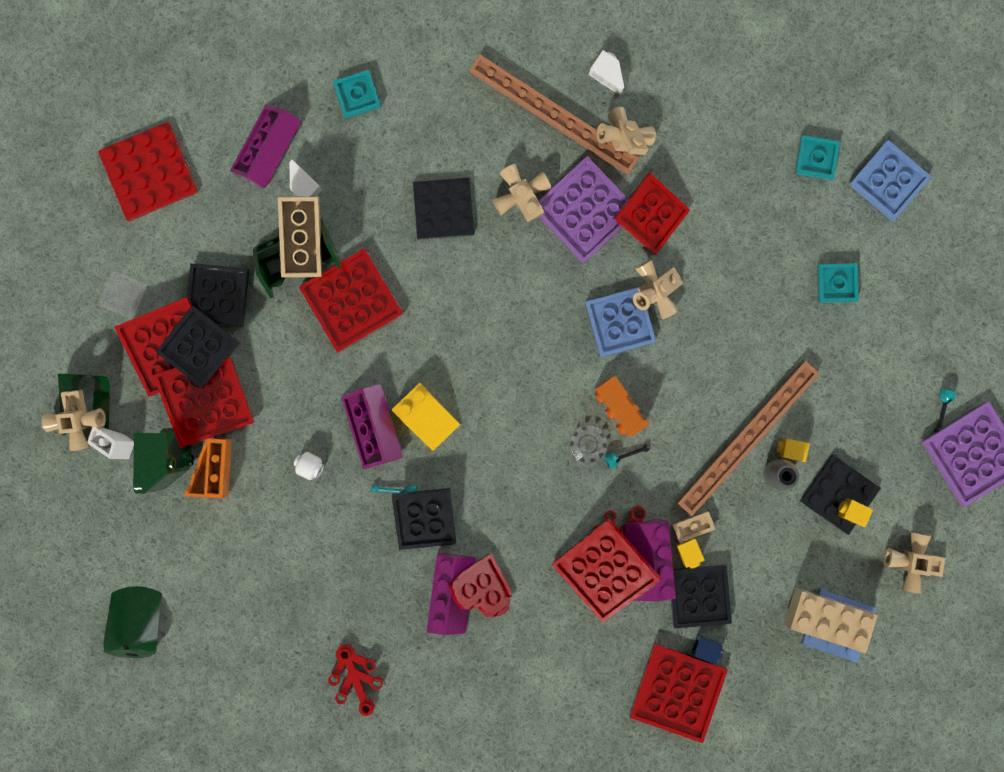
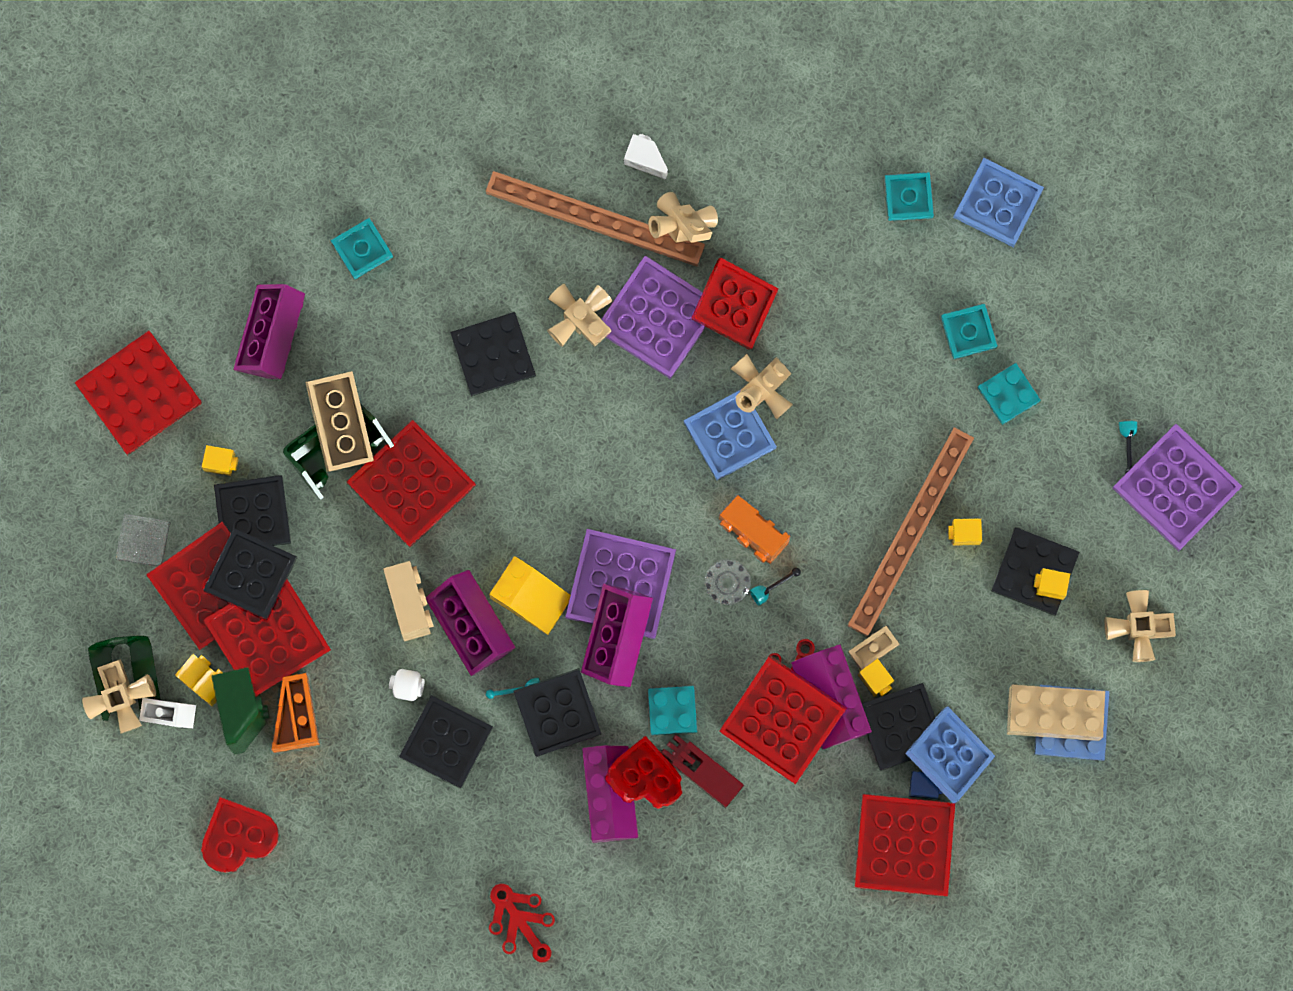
camera: 15 degrees left, 10 degrees down
(133, 622) = (240, 910): dark green piece -> none
(144, 419) = (197, 676): none -> yellow brick
(145, 554) = (236, 835): none -> red plate
(199, 244) = (219, 460): none -> yellow brick
(301, 183) = (323, 362): white slope -> none
(324, 398) = (408, 600): none -> tan brick
(329, 519) = (446, 742): none -> black plate
(487, 468) = (616, 635): none -> magenta slope
(501, 424) = (622, 564): none -> medium lavender plate
(518, 537) = (672, 710): none -> teal plate
(535, 598) = (708, 776): none -> dark red hinge
(734, 633) = (950, 754): none -> medium blue plate
(781, 474) = (956, 551): dark grey piece -> none
(856, 342) = (1009, 393): none -> teal plate

